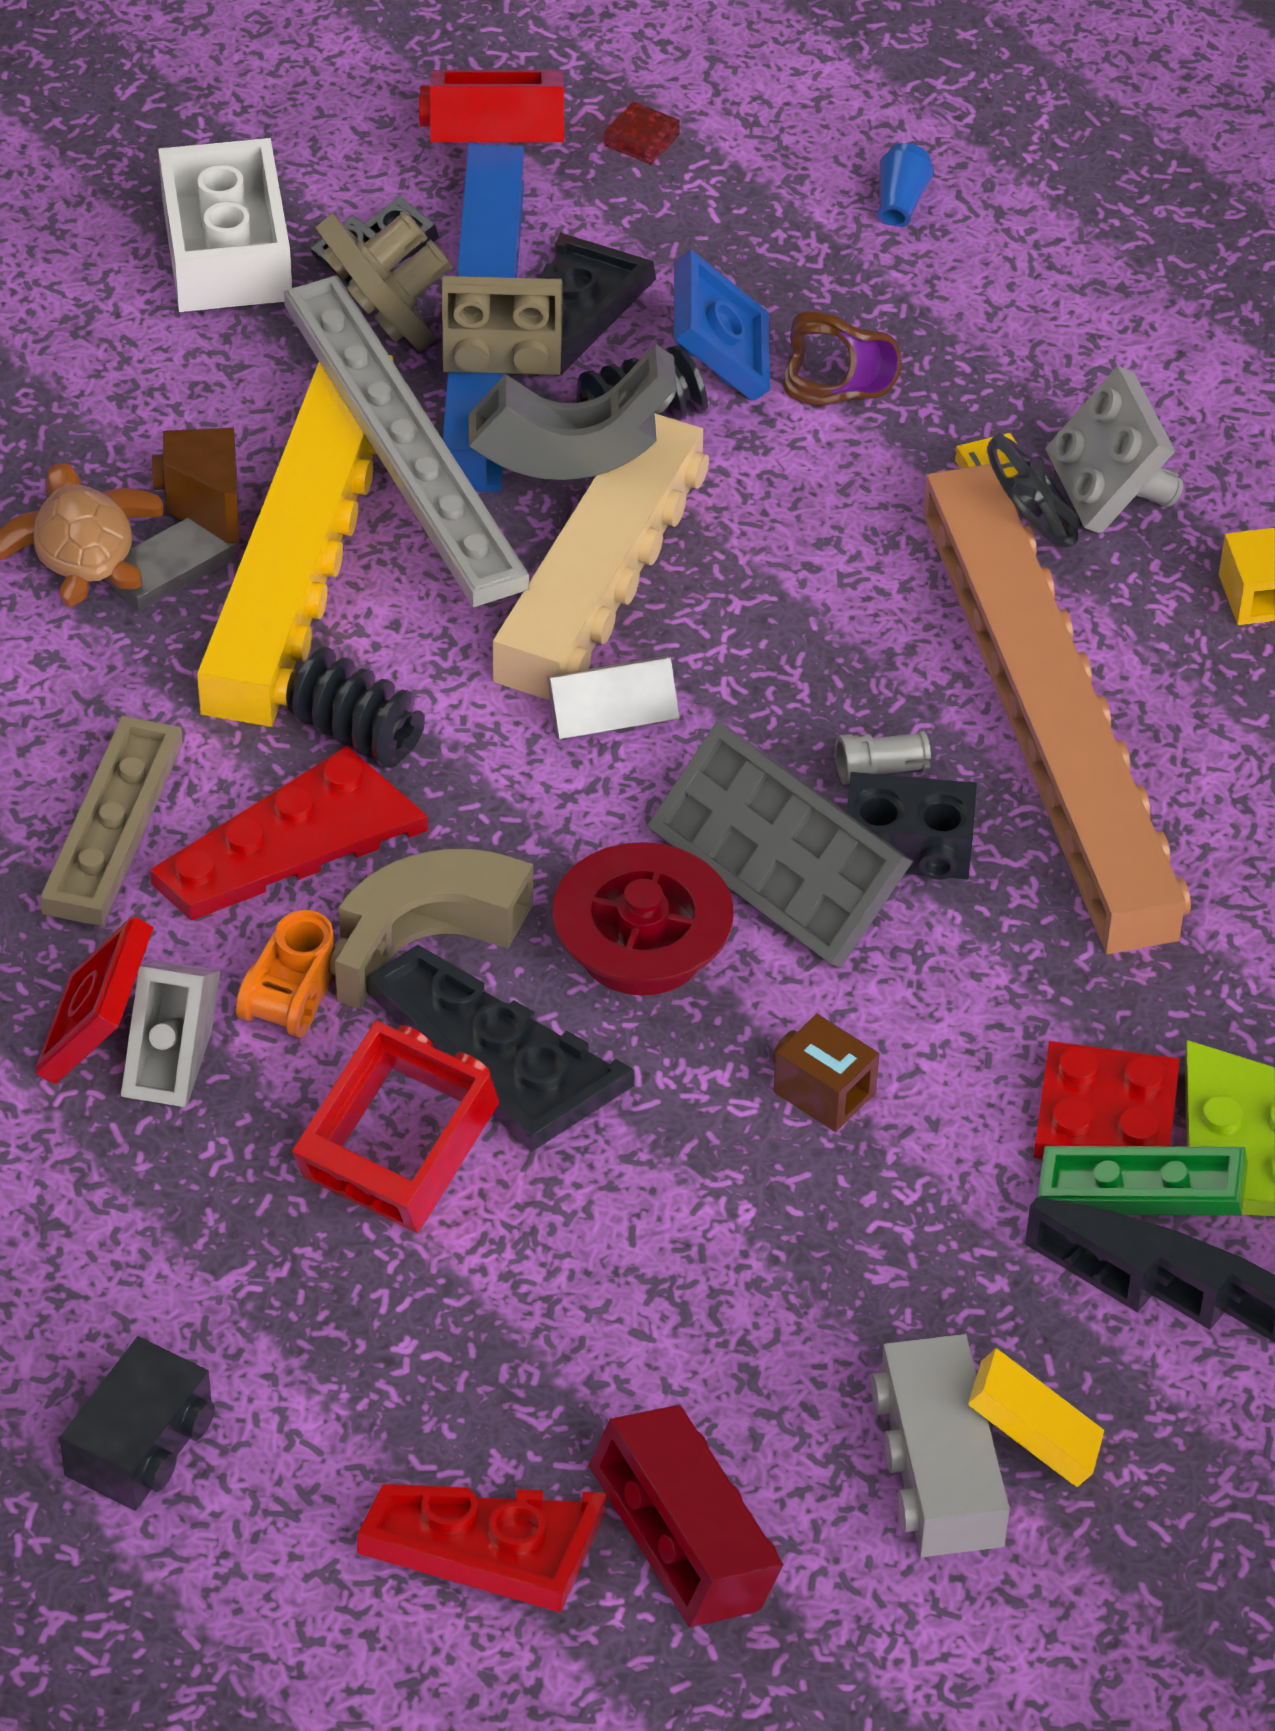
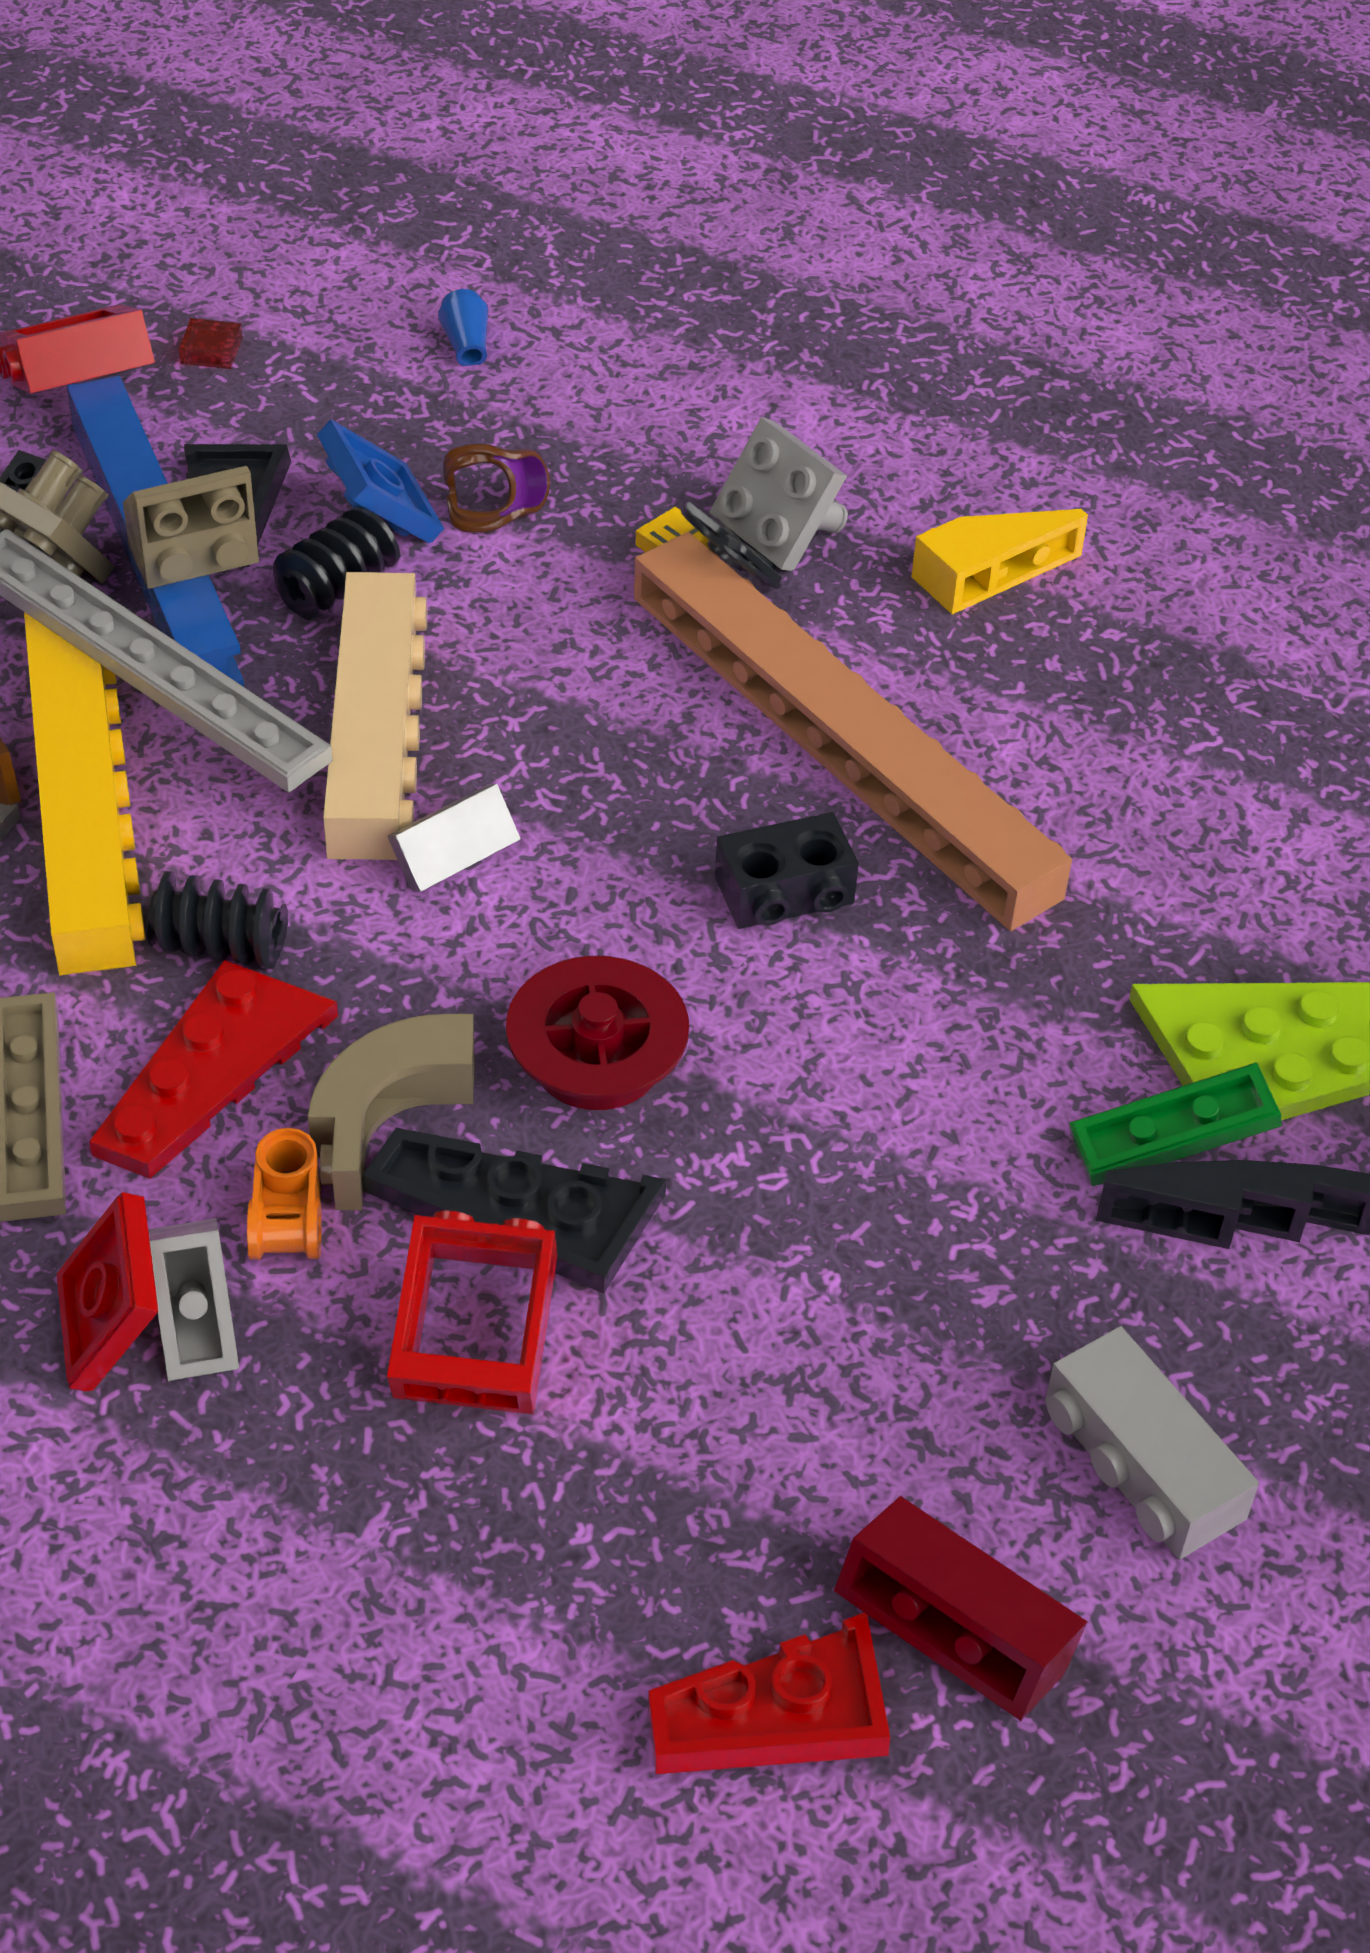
camera: 25 degrees left, 0 degrees up
(137, 1424) = (364, 1724): black brick -> none
(574, 438) = (312, 610): dark grey arch -> none
(780, 844) = (687, 921): dark grey plate -> none
(825, 1072) = (838, 1120): reddish brown brick -> none
(881, 754) = (719, 817): light grey pin -> none
(1036, 1417) = (1222, 1383): yellow tile -> none
(1105, 1098) = (1091, 1062): red plate -> none

